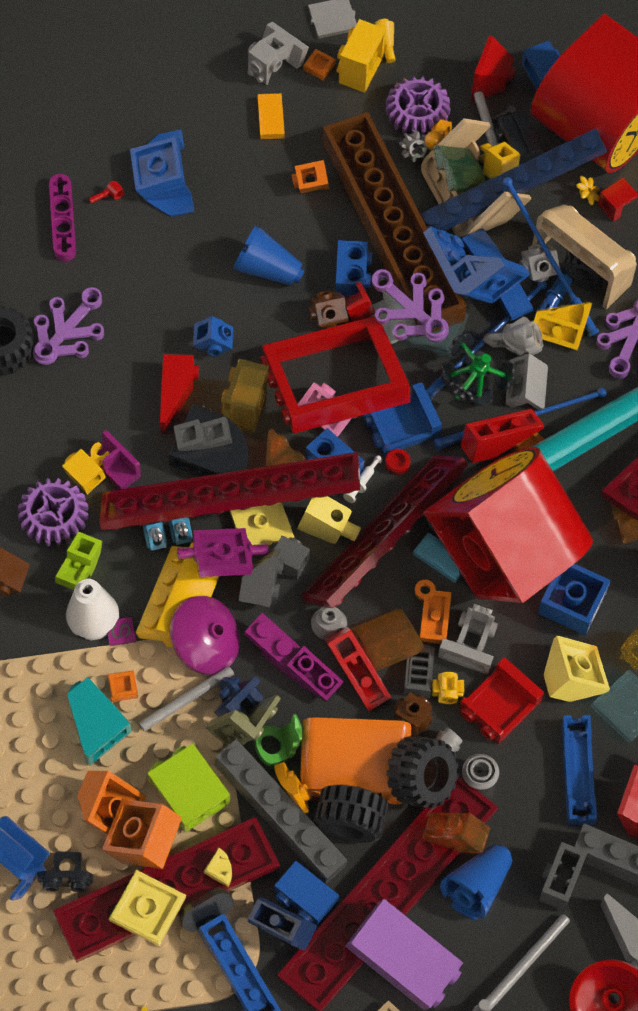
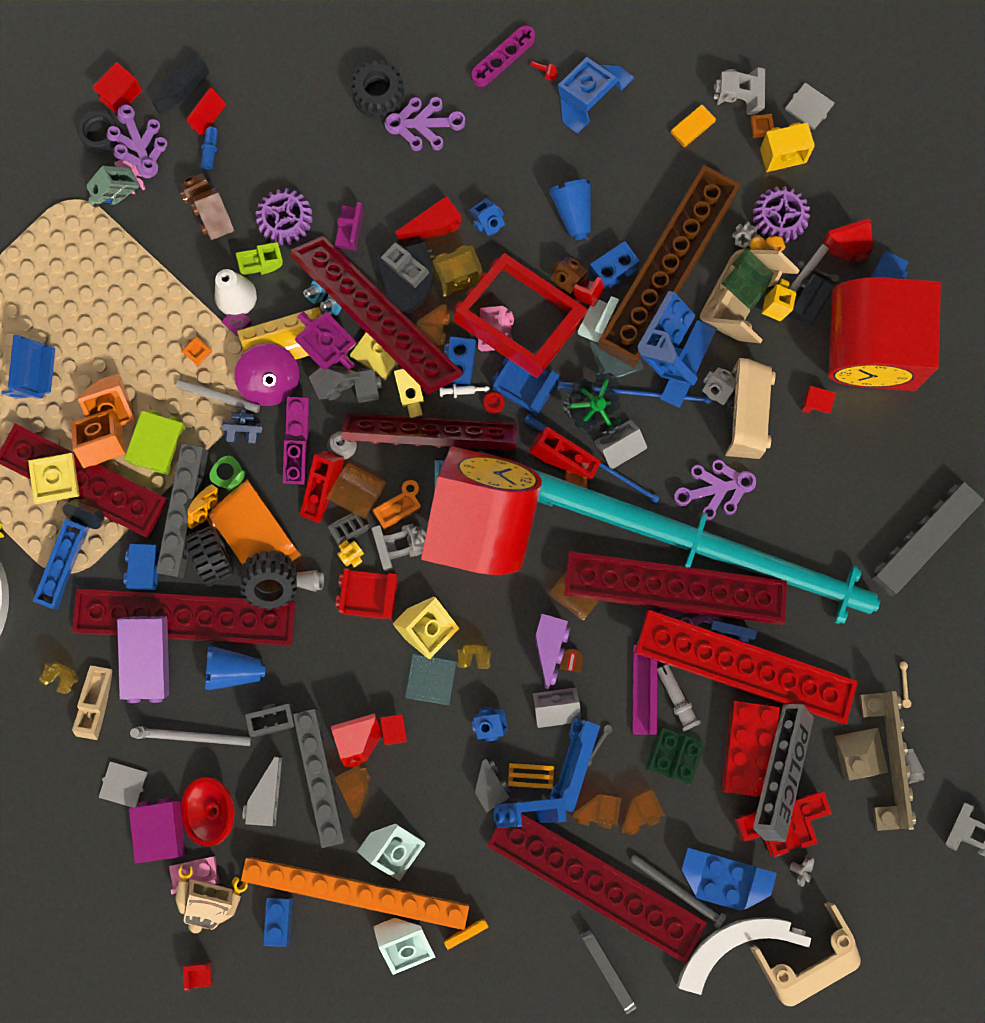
camera: 60 degrees right, 15 degrees up
(55, 878) = (45, 423): black bracket -> none
(84, 469) = (327, 211): yellow brick -> none
(96, 720) = (157, 352): teal slope -> none
(220, 868) = (114, 502): light yellow tile -> none
(242, 727) = (219, 451): olive bracket -> none
(282, 923) = (107, 567): dark blue brick -> none
(314, 169) = (670, 193): orange brick -> none
(389, 39) = (823, 148): yellow cone -> none
(413, 309) = (605, 328): medium lavender plant -> none
(419, 718) = (319, 550): reddish brown brick -> none
(457, 831) = (248, 631): clear orange slope -> none
(480, 771) = (302, 611): light grey cone -> none
(518, 337) = (647, 414): light grey piece -> none
(523, 176) = (760, 322): dark blue plate -> none
(555, 295) = (704, 414): blue axle -> none
(563, 324) = (683, 434): yellow wing -> none
(574, 598) = (477, 591): blue brick -> none
(578, 770) = (357, 679): blue piece -> none
(588, 190) = (810, 376): yellow plant -> none
(590, 327) = (708, 430): blue piece -> none

